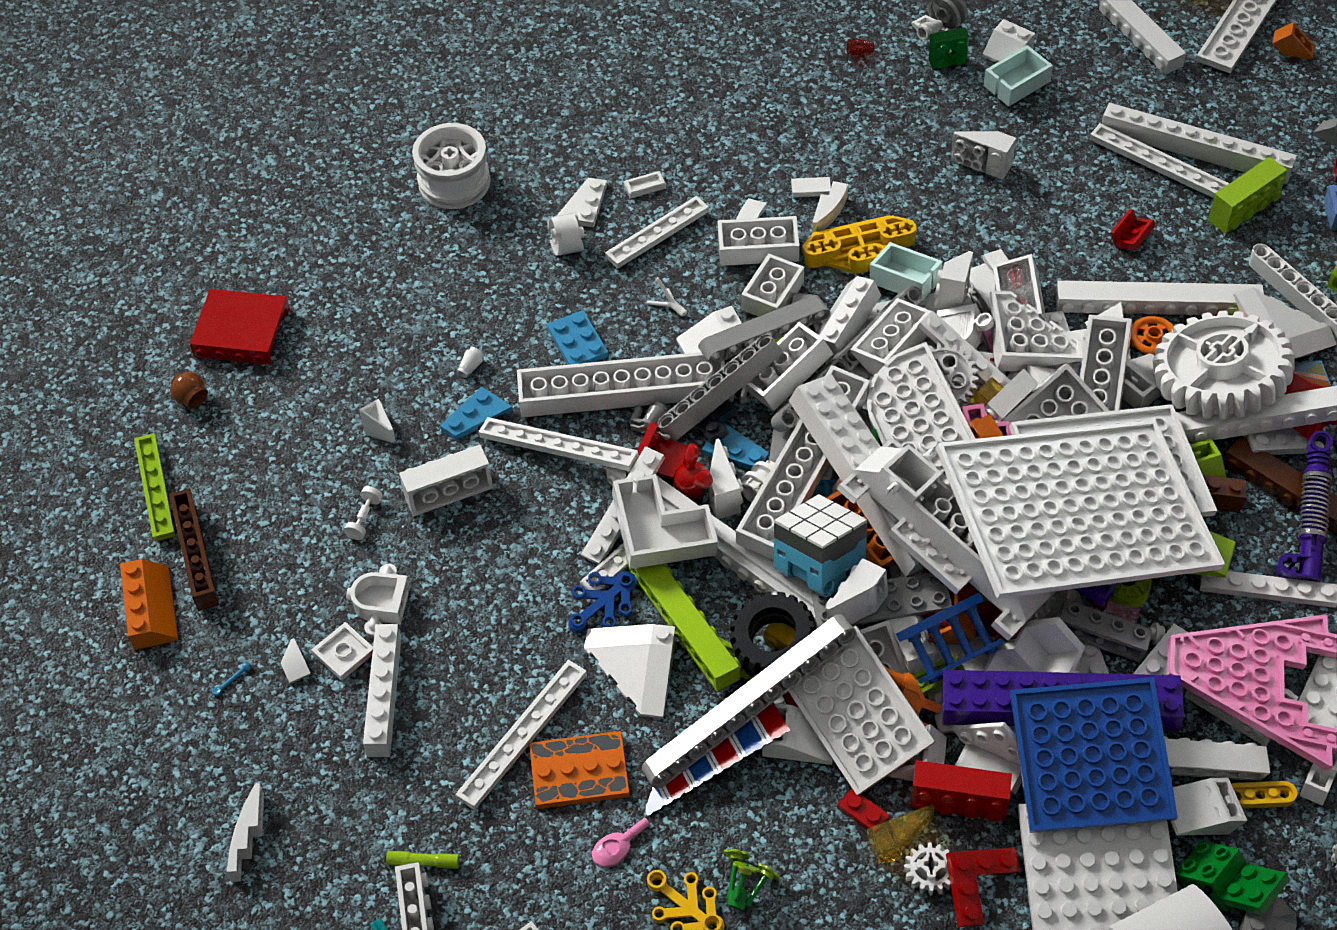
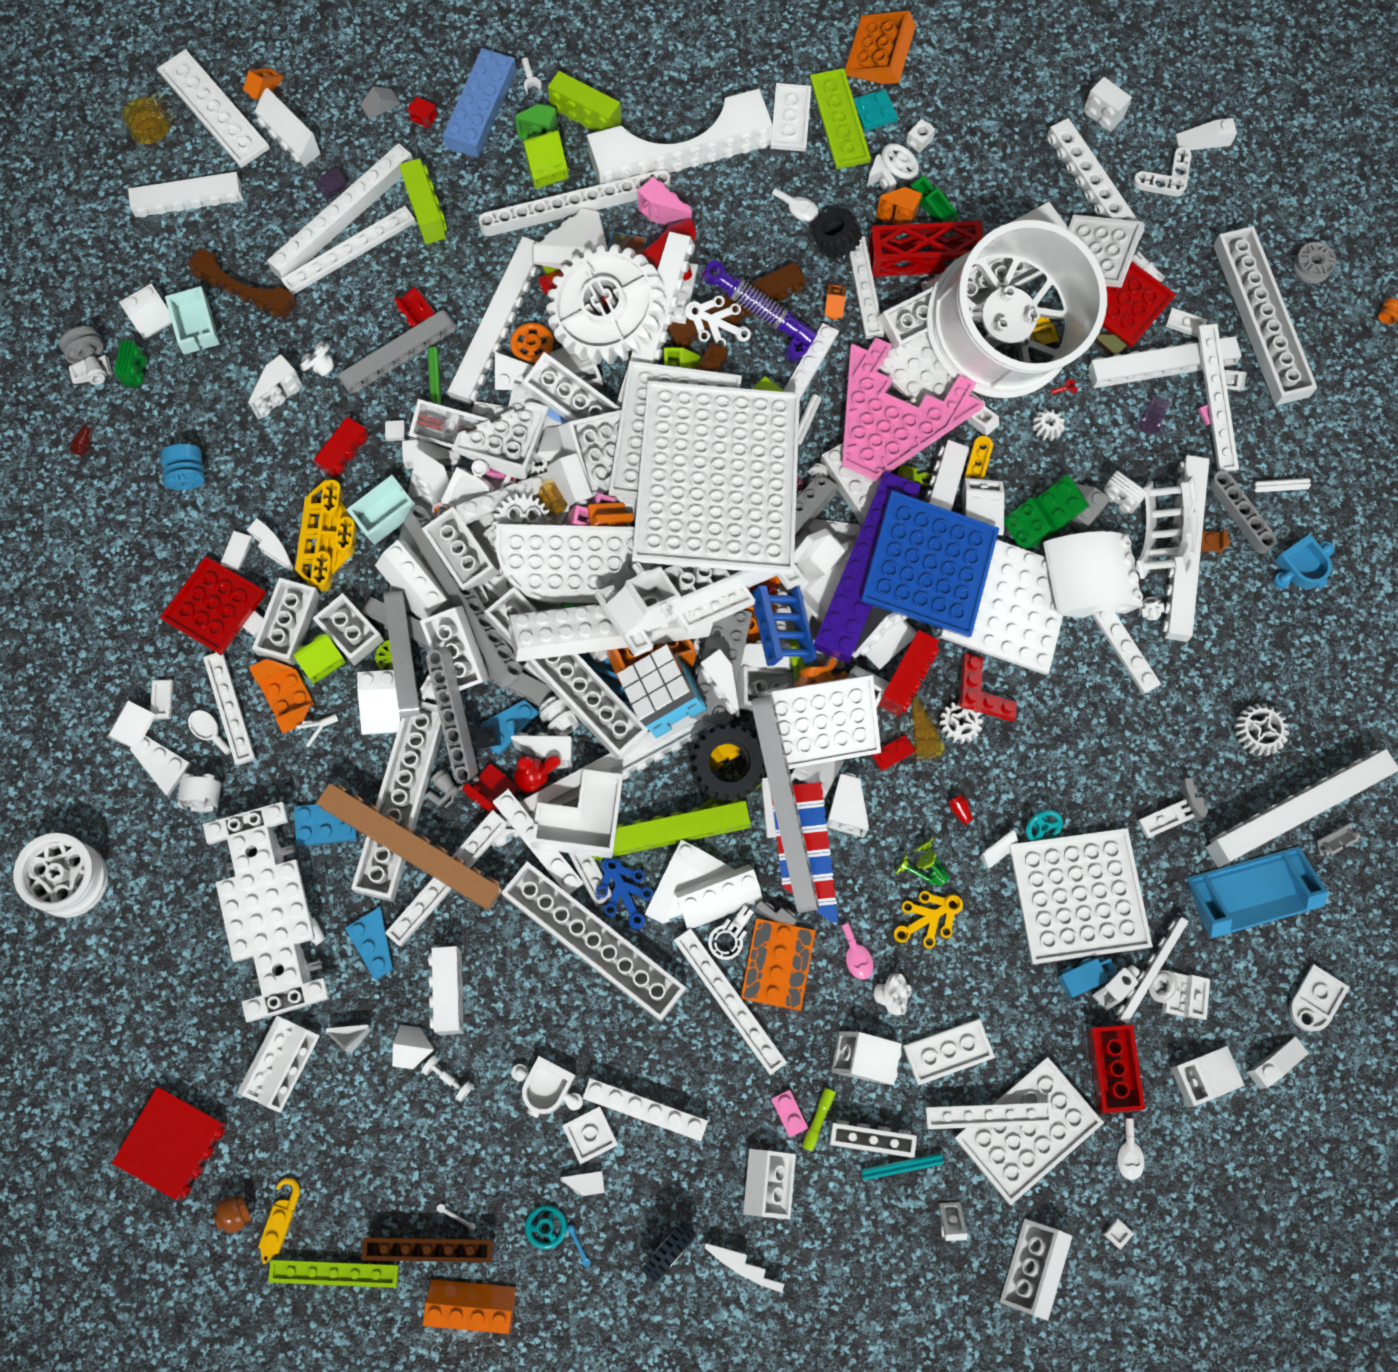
camera: 75 degrees left, 20 degrees up
(191, 431) = (279, 1222): none -> yellow plate
(237, 553) = (441, 1208): none -> white hinge
(237, 635) = (532, 1228): none -> teal piece
(241, 746) = (668, 1251): none -> black wheel
(335, 375) = (278, 1064): none -> white brick
(339, 831) = (769, 1184): none -> white slope
(383, 471) = (410, 1047): none -> white slope
(421, 830) = (789, 1113): none -> bright pink plate
(470, 313) = (266, 912): none -> white piece
(504, 886) = (866, 1057): none -> white slope
(538, 590) = (594, 941): none -> white brick
(572, 398) = (410, 847): none -> medium nougat brick
(584, 889) = (893, 994): none -> white plate
(599, 715) = (739, 922): none -> white pin
(609, 166) = (131, 725): none -> white slope
(628, 684) = (718, 896): none -> white slope
(630, 222) = (206, 728): none -> white piece
(631, 746) = (782, 916): none -> light grey slope
(692, 265) = (283, 692): none -> orange piece
(731, 273) = (319, 658): none -> lime slope
(748, 185) = (213, 605): none -> red plate
(779, 774) = (848, 807): none -> white slope
(827, 900) = (961, 809): none -> red cone
(869, 116) = (182, 467): none -> dark azure wheel
(954, 224) = (341, 447): none -> red brick
(1032, 176) = (318, 360): none -> white plate
(1070, 271) = (434, 375): none -> bright green axle
(1075, 126) = (276, 301): none -> reddish brown arch
(1079, 234) = (397, 352): none -> light grey beam
(1201, 726) = (911, 474): none -> lime plate
(1213, 605) = (808, 417): none -> white axle
(1222, 123) = (331, 183): none -> clear purple brick
(1255, 74) = (286, 128): none -> white slope
(1272, 477) = (714, 320): none -> white plant

